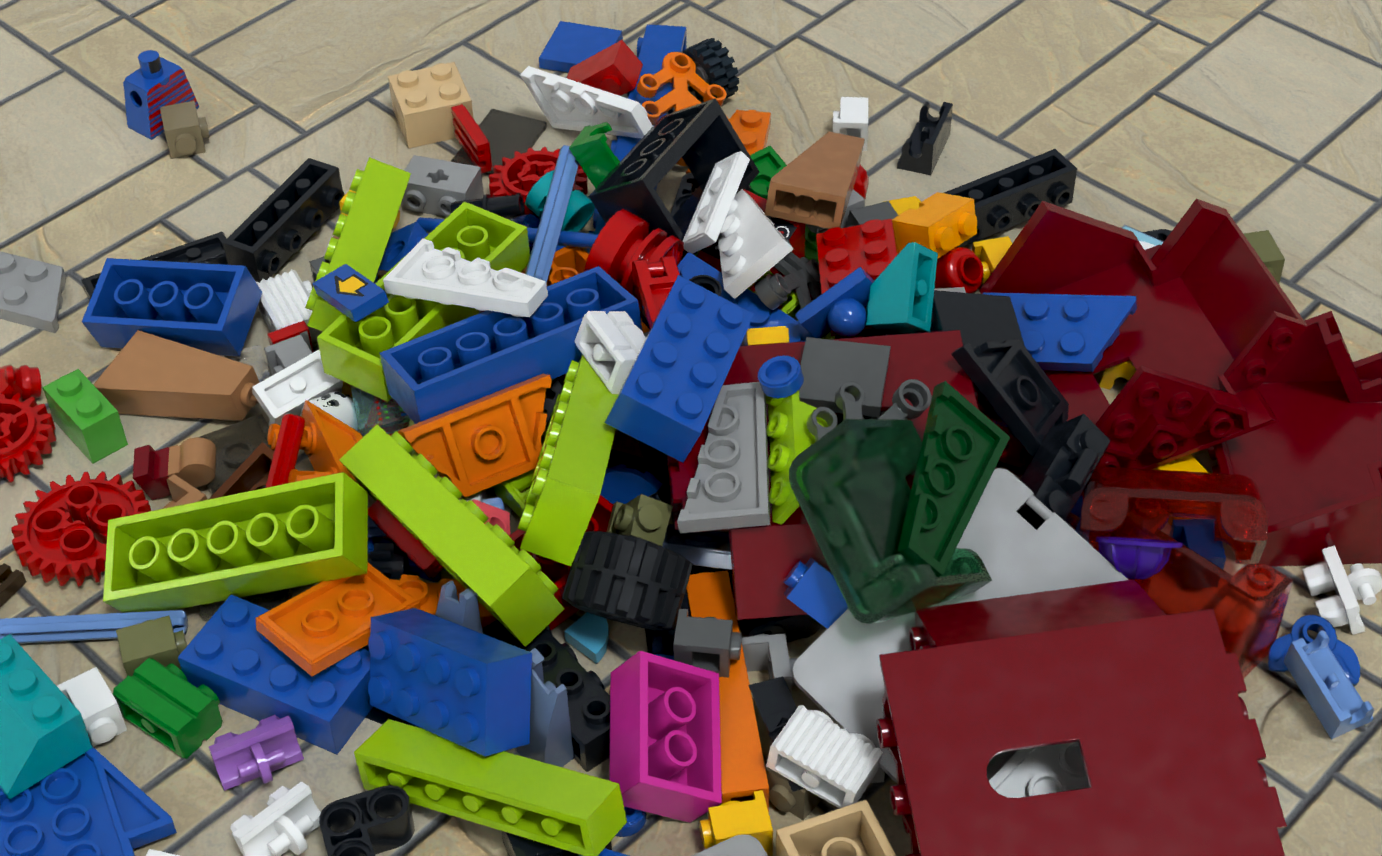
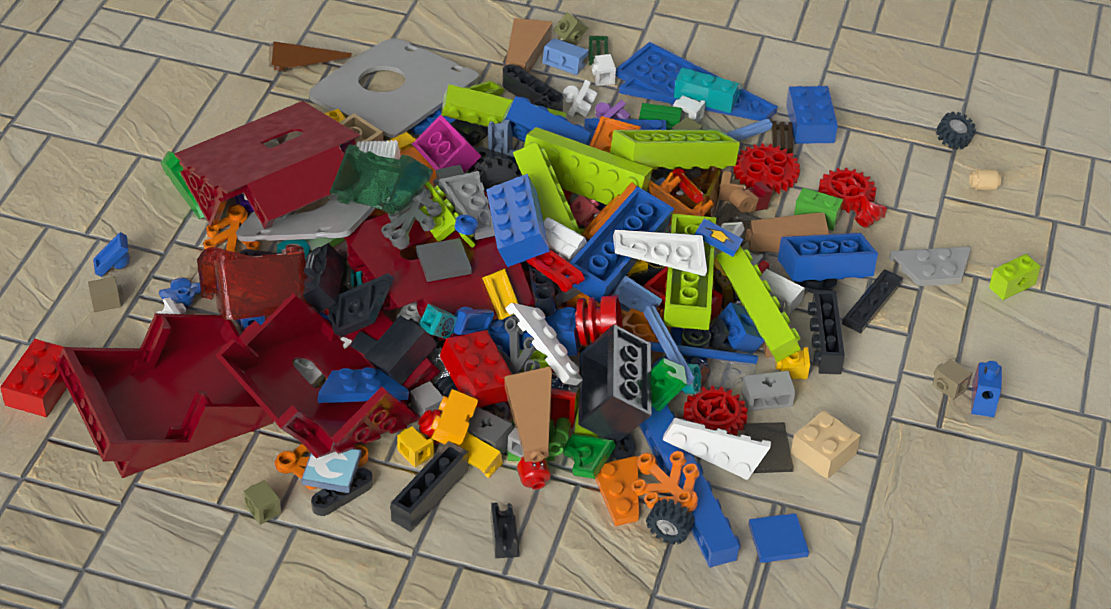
camera: 150 degrees right, 0 degrees up
(472, 138) = (776, 423): red tile -> none
(503, 206) = (724, 375): black axle -> none
(609, 70) = (732, 488): red brick -> none
(715, 202) = (579, 365): white tile -> none
(852, 118) = (557, 525): white brick -> none
(949, 478) = (363, 207): dark green wing -> none
(1136, 556) = (270, 239): dark purple piece -> none
(1327, 686) = (172, 268): medium blue hinge -> none

